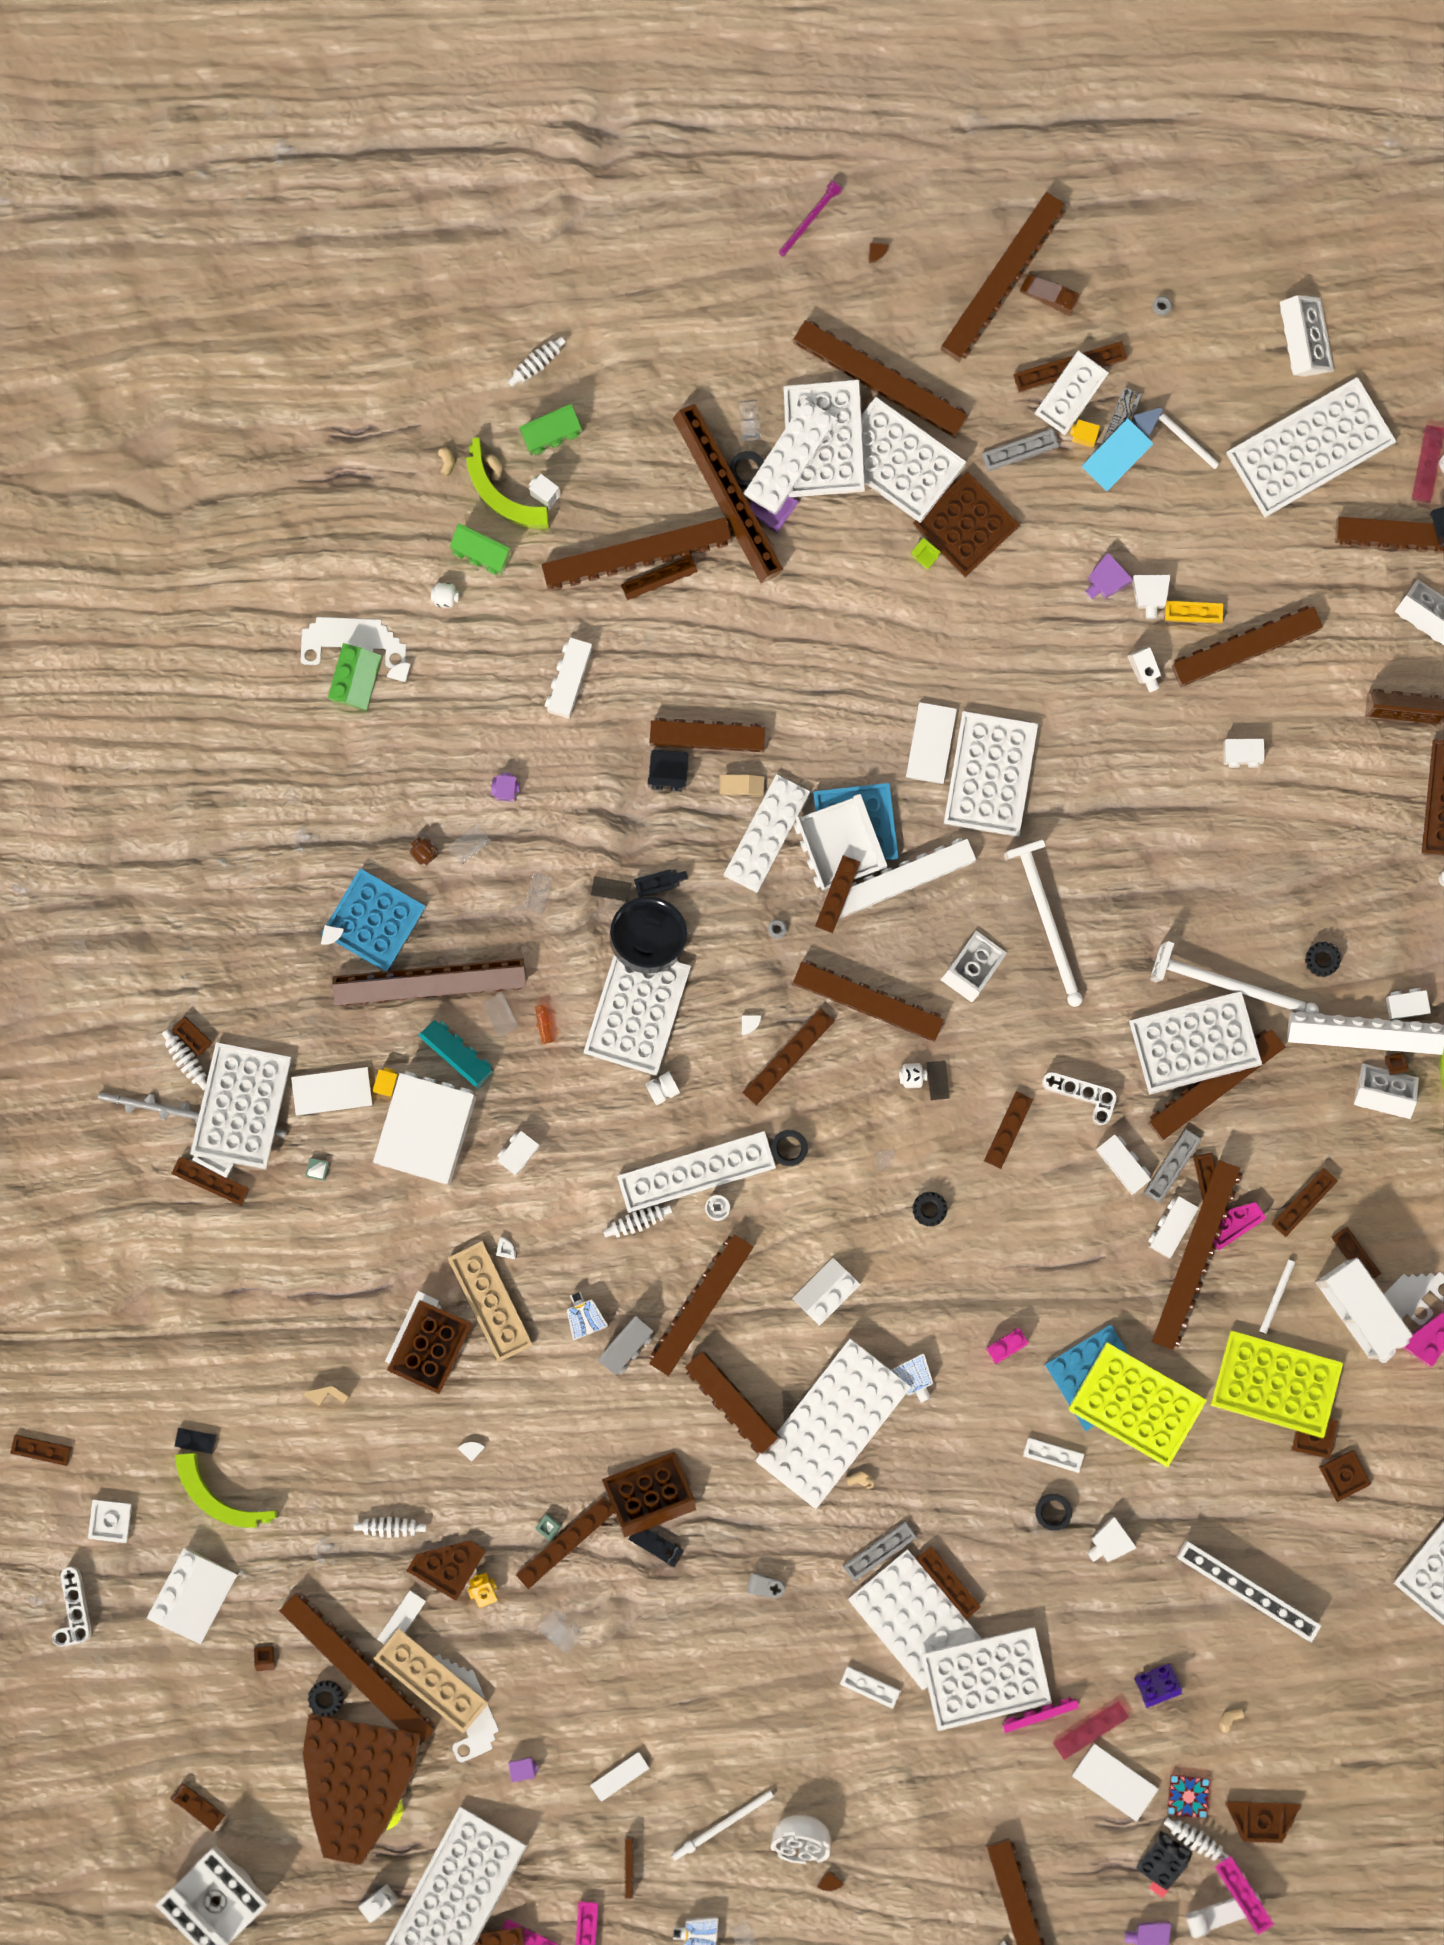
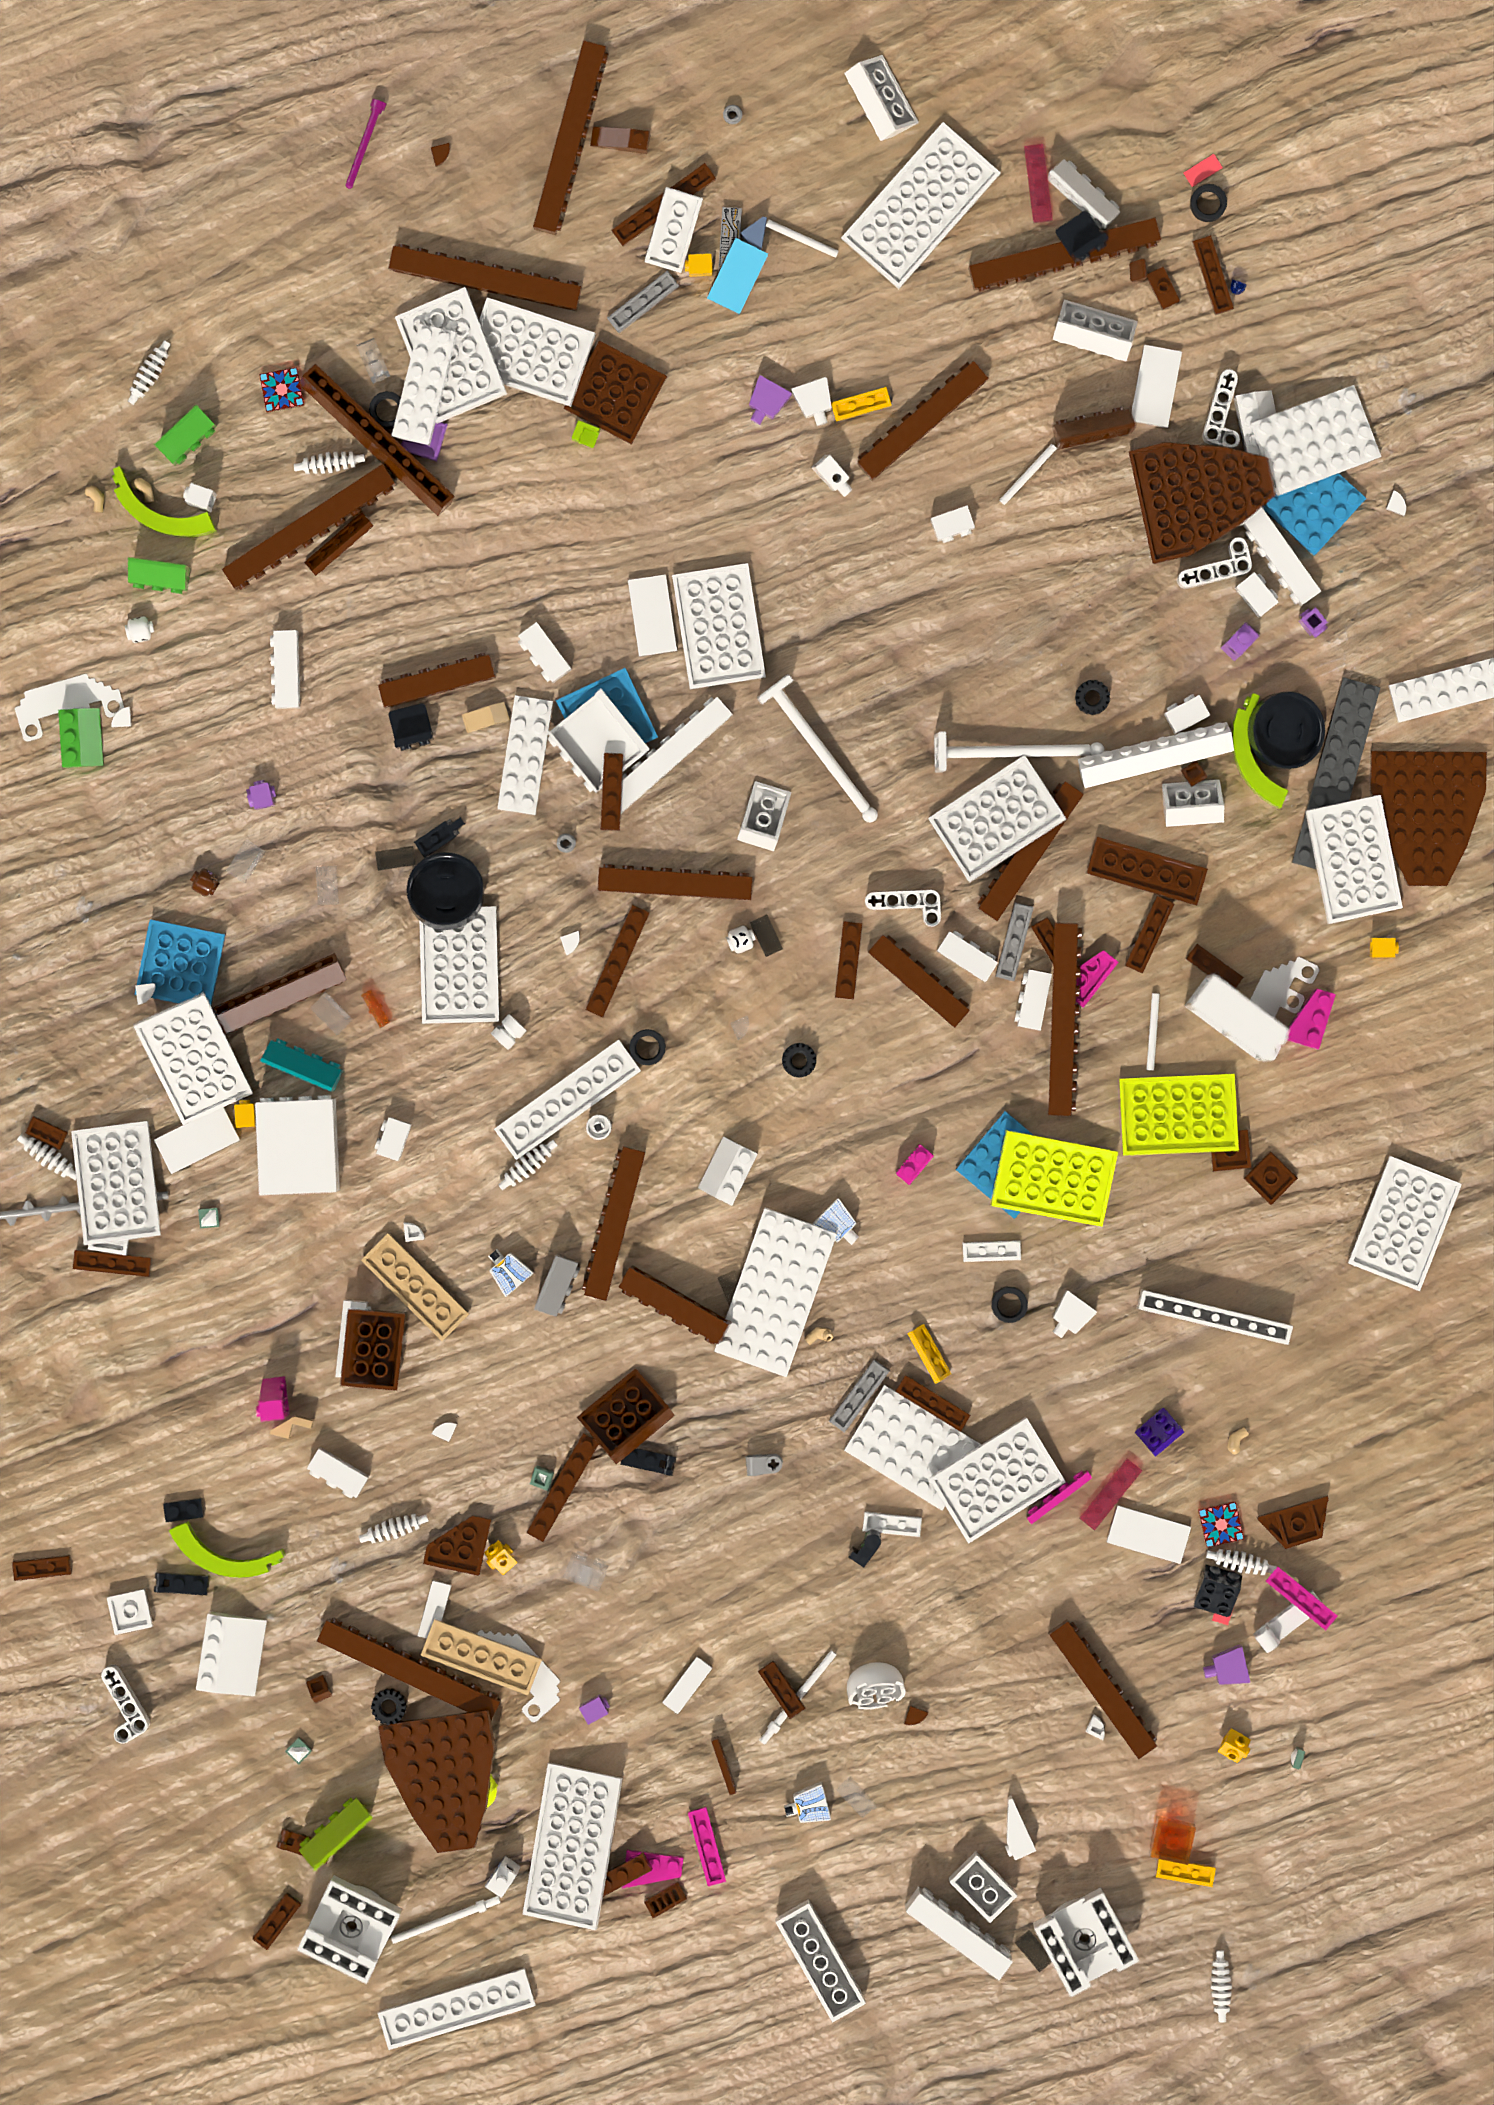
camera: 25 degrees left, 5 degrees up
(145, 1871) = (277, 1921): none -> reddish brown tile
(169, 1511) = (182, 1583): none -> black plate
(224, 1712) = (298, 1750): none -> tile
(231, 1804) = (335, 1833): none -> lime slope
(318, 1362) = (273, 1399): none -> dark pink wedge
(346, 1925) = (480, 1906): none -> white bar
(354, 1455) = (337, 1473): none -> white brick
(355, 1012) = (193, 1058): none -> white plate
(654, 418) = (281, 389): none -> tile
(683, 501) = (329, 462): none -> white piece
(709, 1812) = (781, 1689): none -> reddish brown tile
(817, 744) = (543, 653): none -> white brick
(838, 1702) = (866, 1549): none -> black leg
(961, 1533) = (929, 1353): none -> yellow plate
(1069, 1172) = (918, 981): none -> reddish brown brick
(1321, 1141) = (1147, 871): none -> reddish brown plate
(1330, 729) = (1027, 474): none -> white bar

